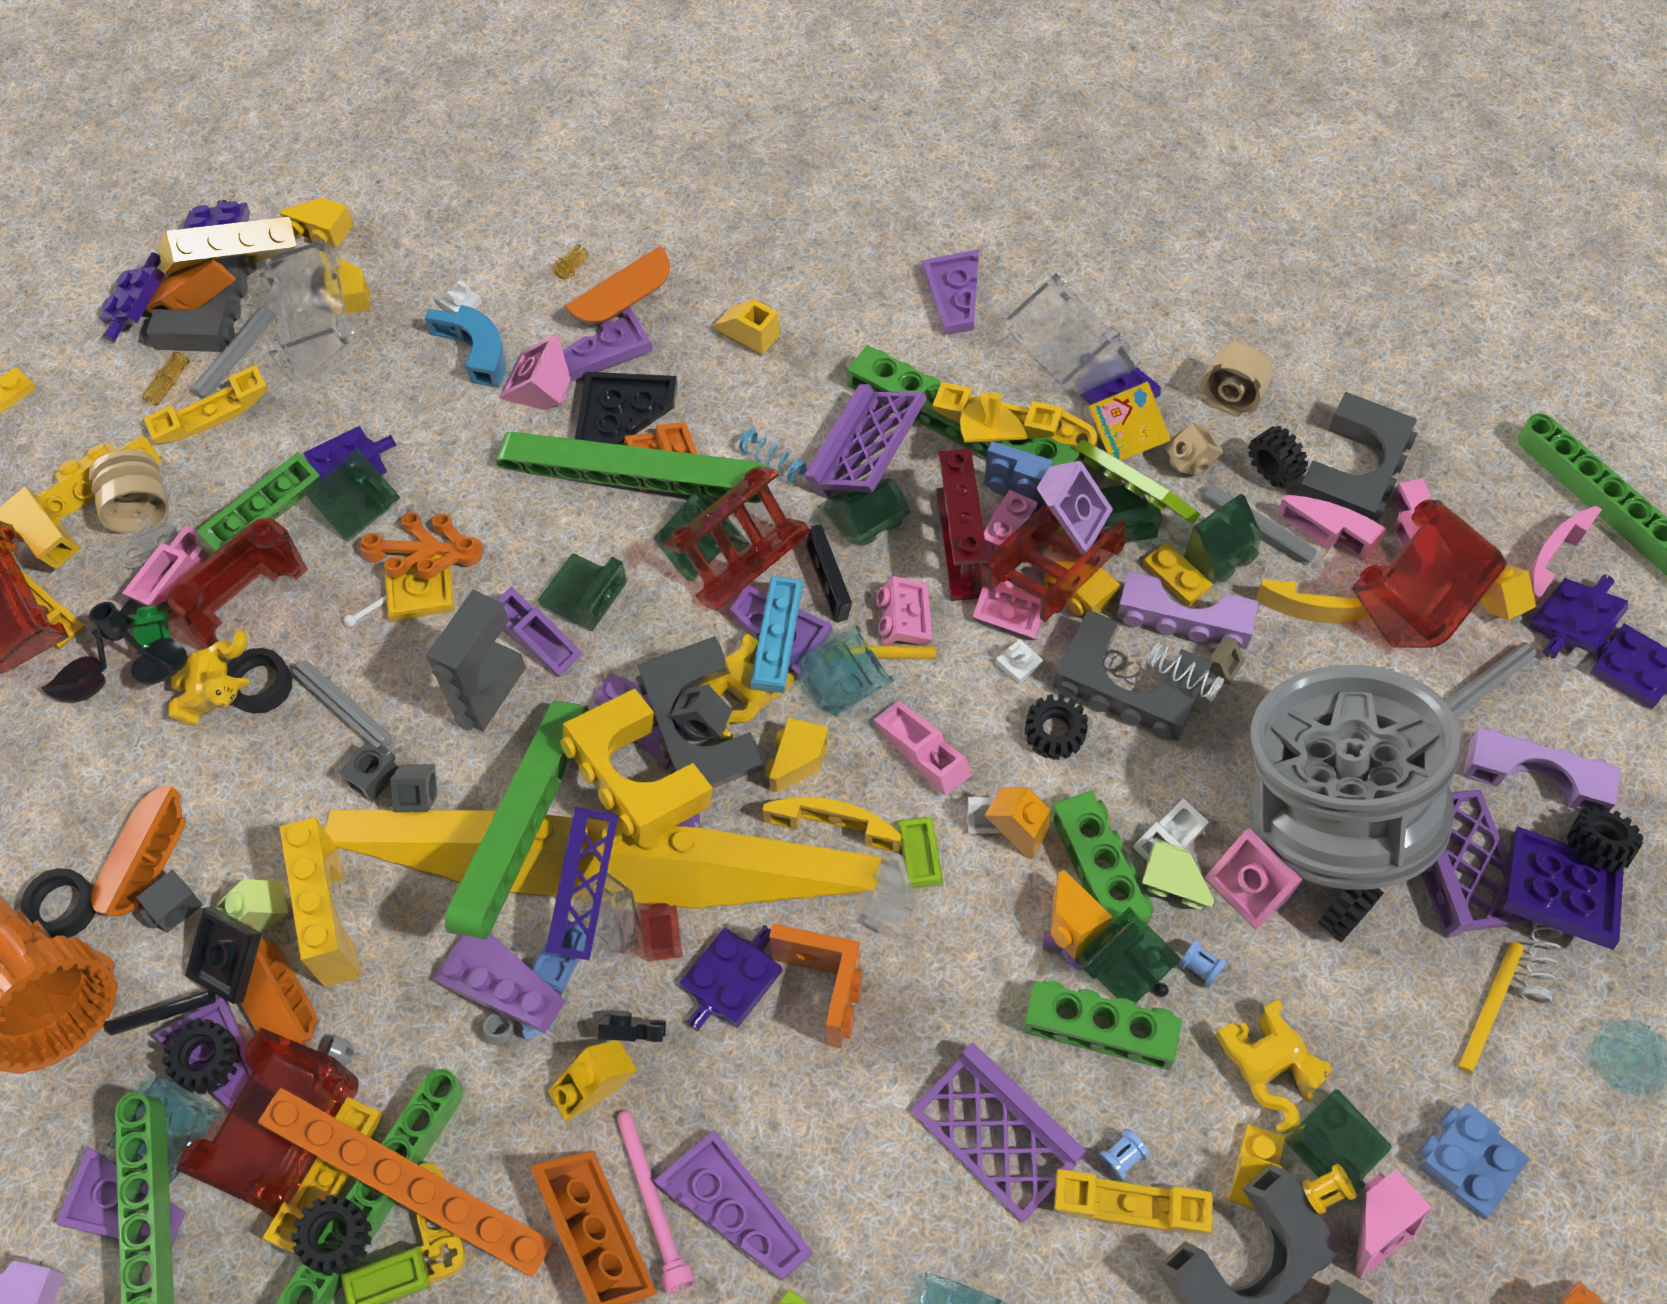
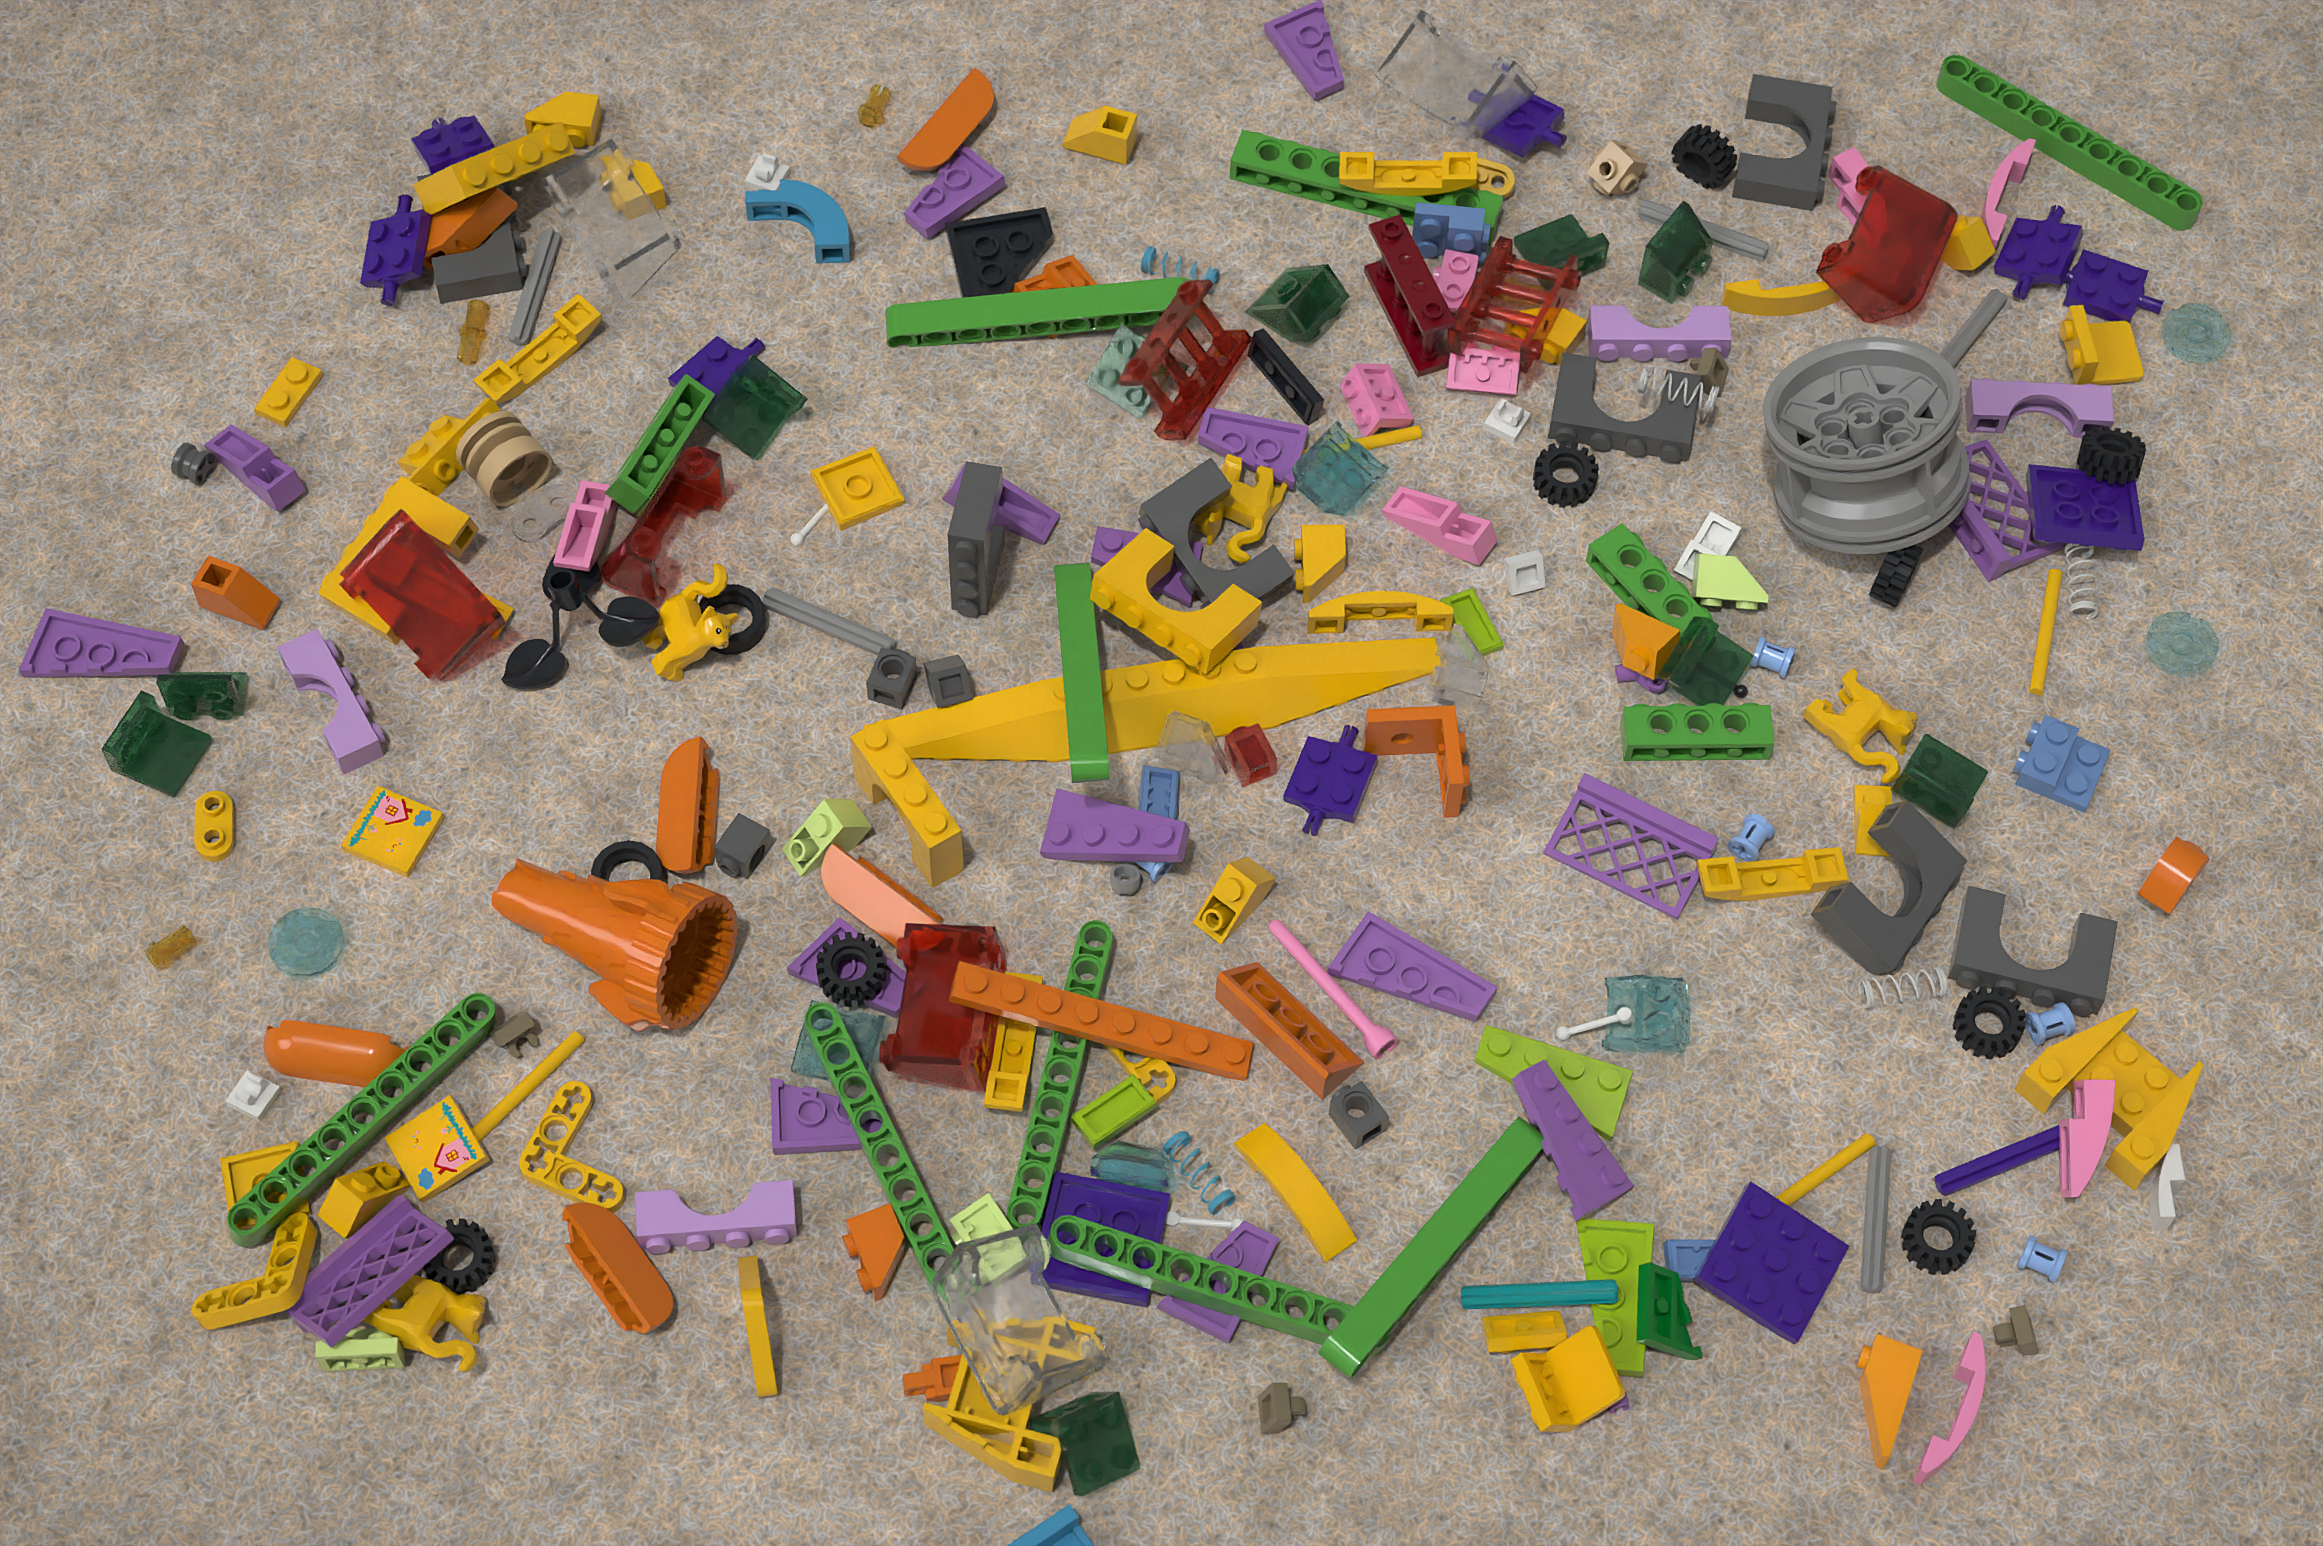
camera: 20 degrees left, 0 degrees up
(149, 625) = (599, 590): green bracket -> none
(161, 1012) = (783, 947): black bar -> none
(223, 954) = (827, 877): black tile -> none
(309, 1227) = (1054, 1100): black tyre -> none
(461, 549) = (886, 441): orange plant -> none
(539, 376) = (894, 238): bright pink slope -> none
(567, 881) = (1150, 725): dark purple fence -> none
(584, 590) = (1037, 451): clear green bracket -> none
(624, 1027) = (1246, 845): black plate -> none
(701, 713) = (1218, 537): dark grey brick -> none
(777, 634) = (1259, 447): medium azure tile -> none
(852, 432) = (1253, 232): medium lavender fence -> none
(989, 420) = (1403, 182): yellow shield -> none
(1020, 818) = (1563, 564): light orange slope -> none
(1075, 502) = (1521, 246): lavender slope -> none
(1130, 422) = (1544, 153): yellow tile -> none
(1136, 482) = (1571, 212): lime wing -> none
(1177, 574) = (1639, 298): yellow plate -> none
(1237, 379) = (1639, 83): tan brick -> none
(1253, 879) = (1798, 568): bright pink slope -> none
(1328, 1189) = (1943, 808): yellow bush -> none
(1331, 524) = (1775, 214): bright pink slope -> none
(1388, 1219) = (2001, 826): bright pink slope -> none
(1618, 727) = (2100, 350): none -> yellow bracket

